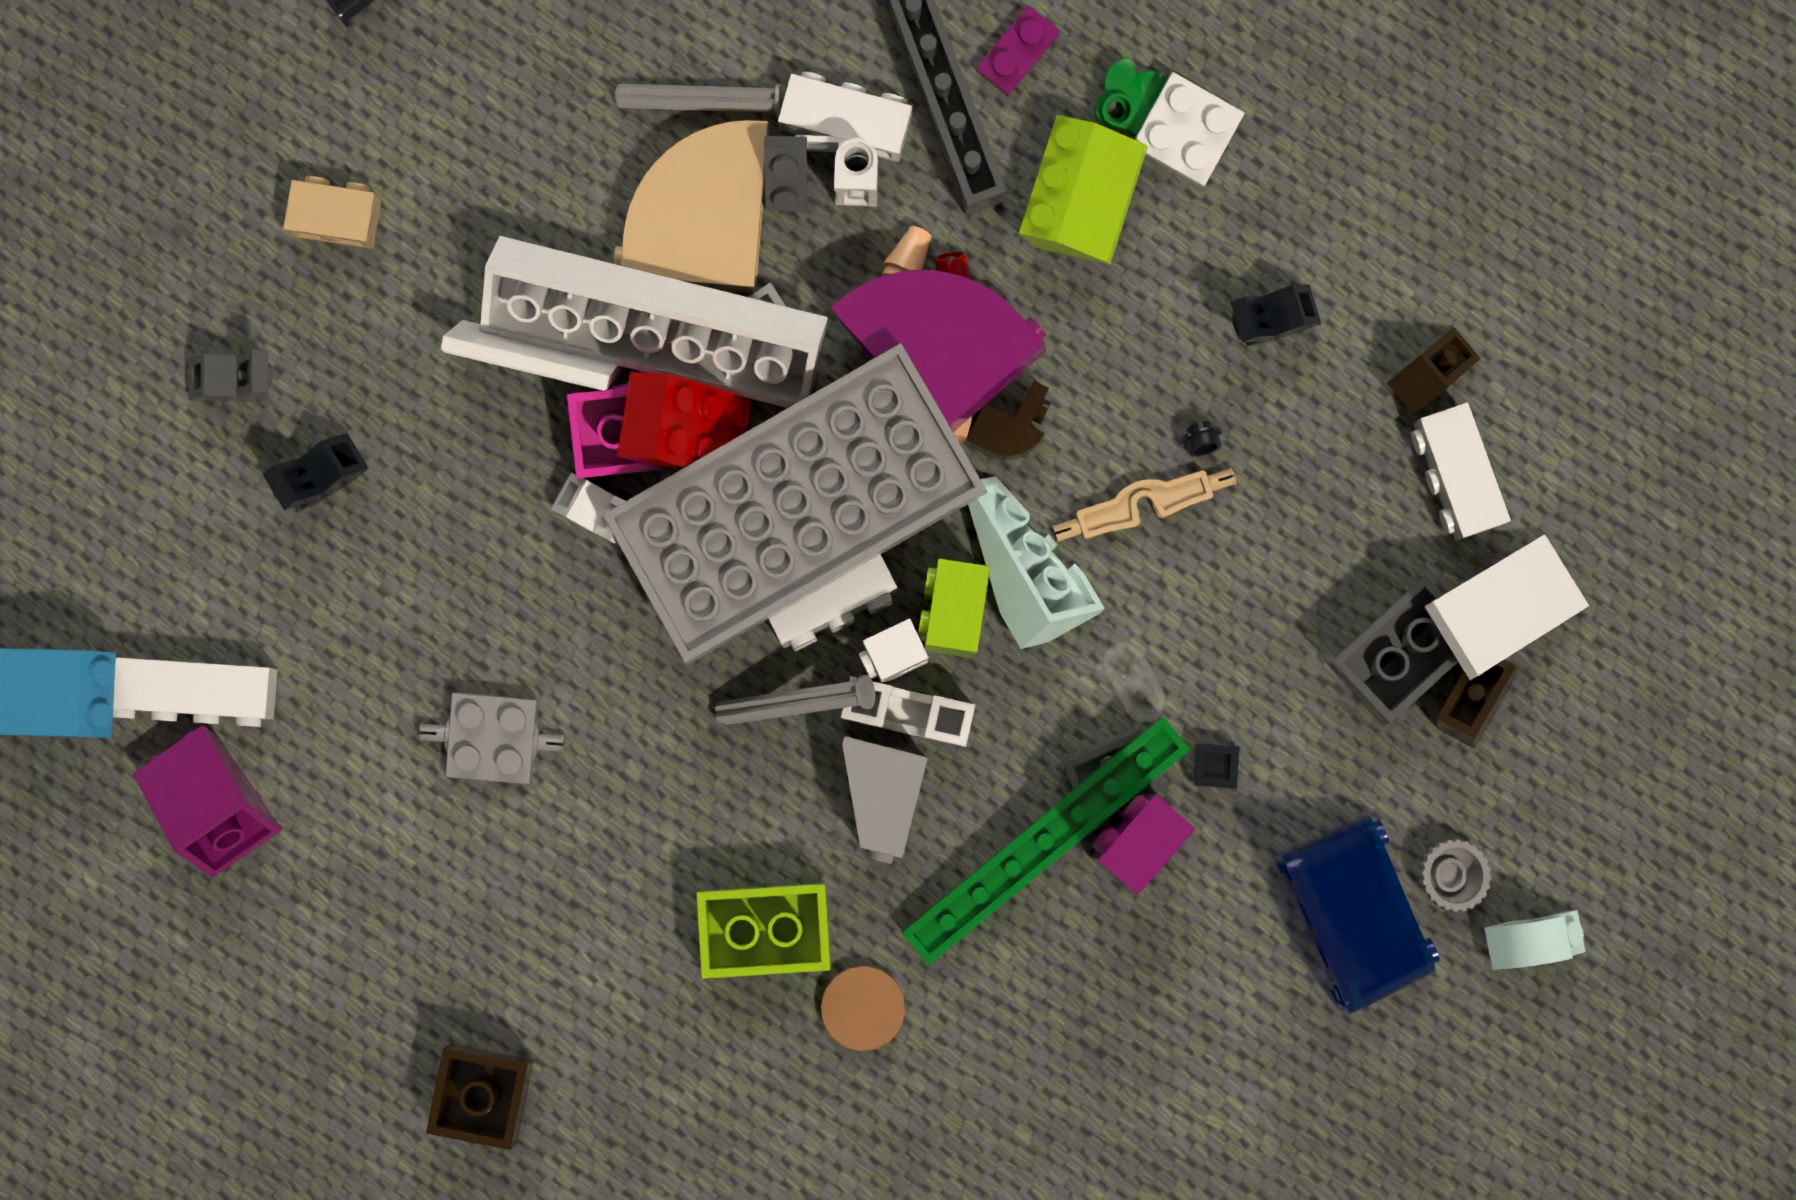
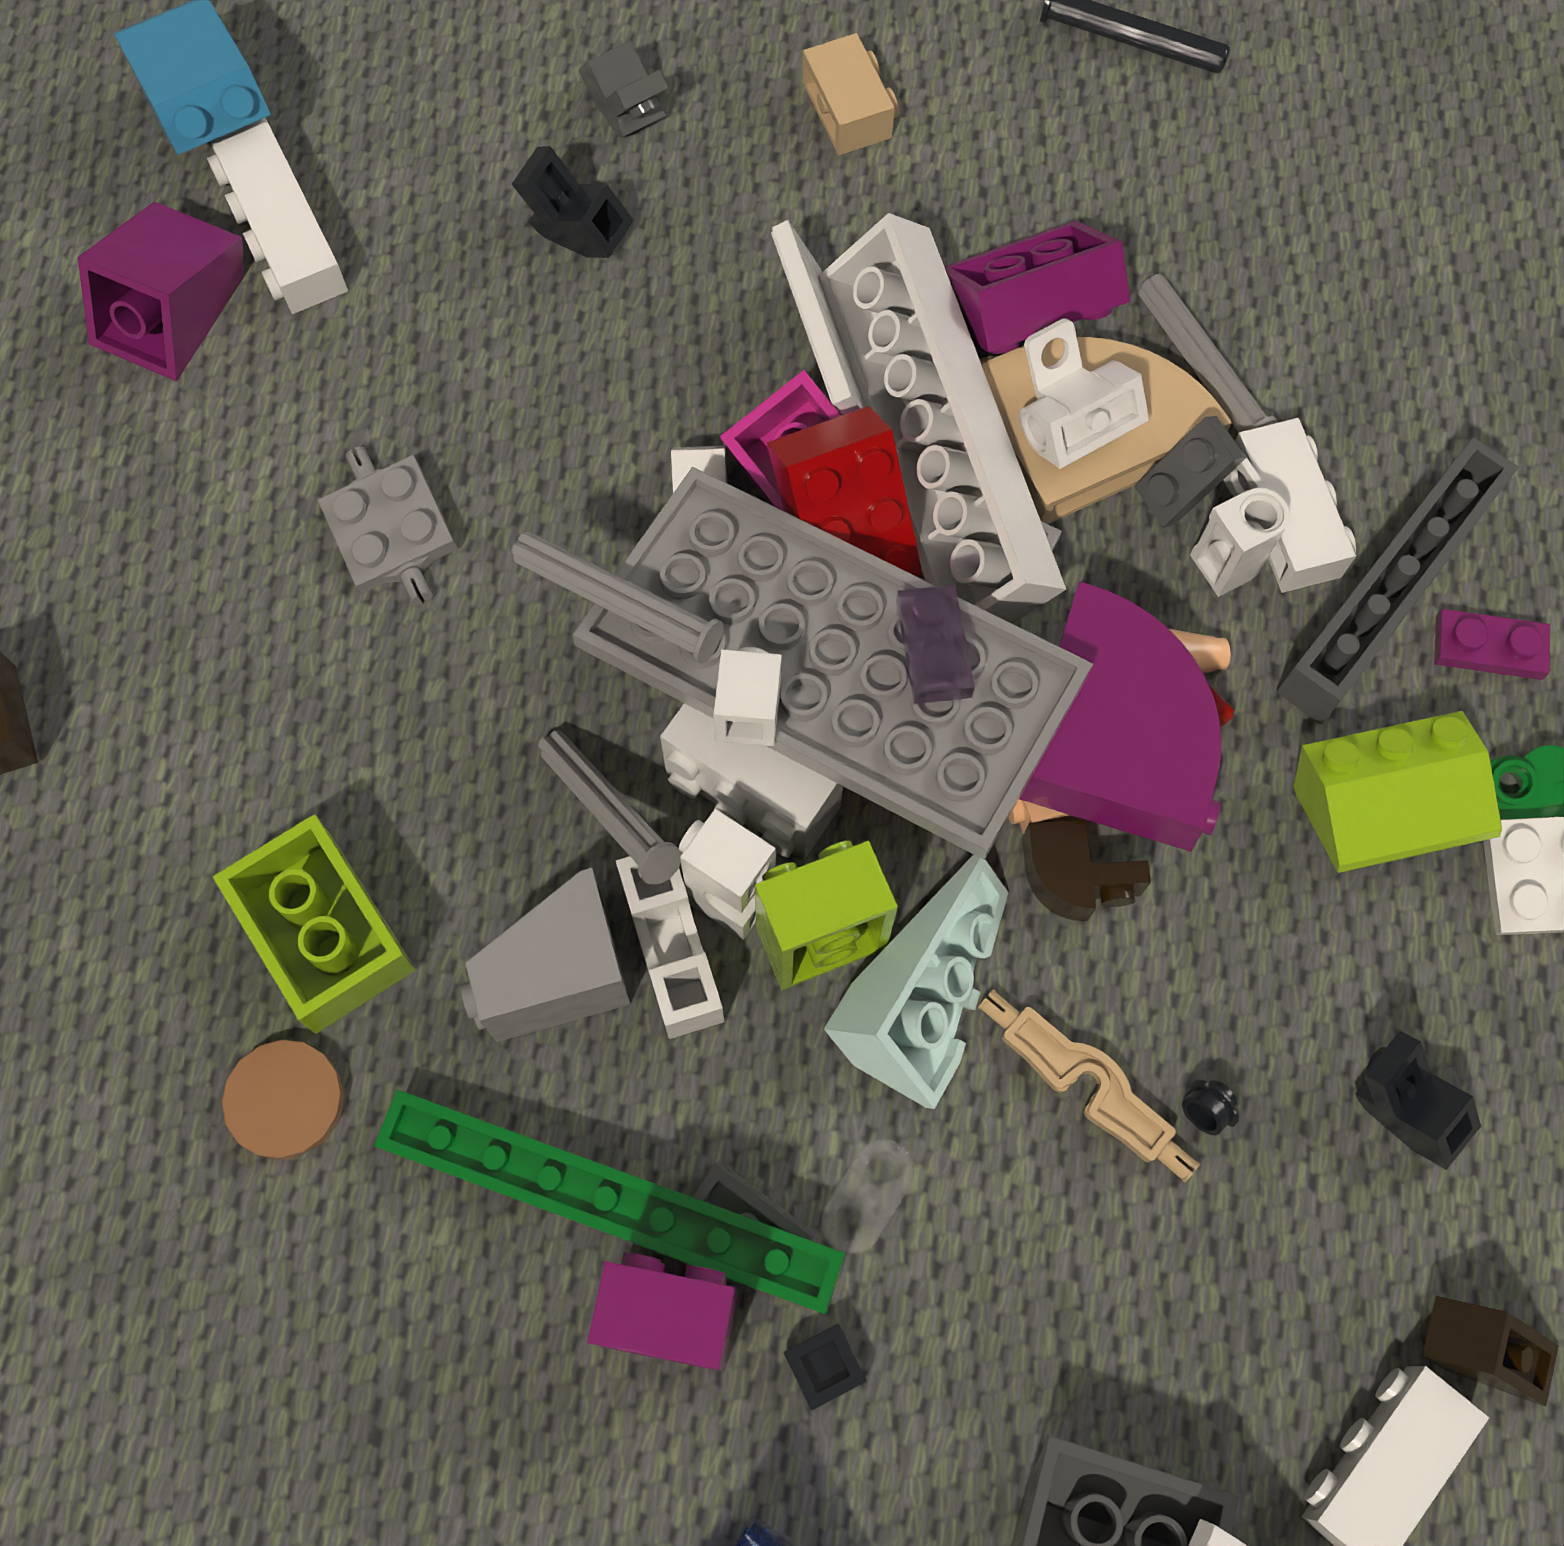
camera: 60 degrees right, 15 degrees down
(583, 187) = (1037, 282): none -> magenta brick
(676, 620) = (618, 596): none -> light grey axle
(701, 223) = (1075, 406): none -> white piece
(802, 577) = (747, 696): none -> white brick
(830, 436) = (934, 644): none -> clear purple plate

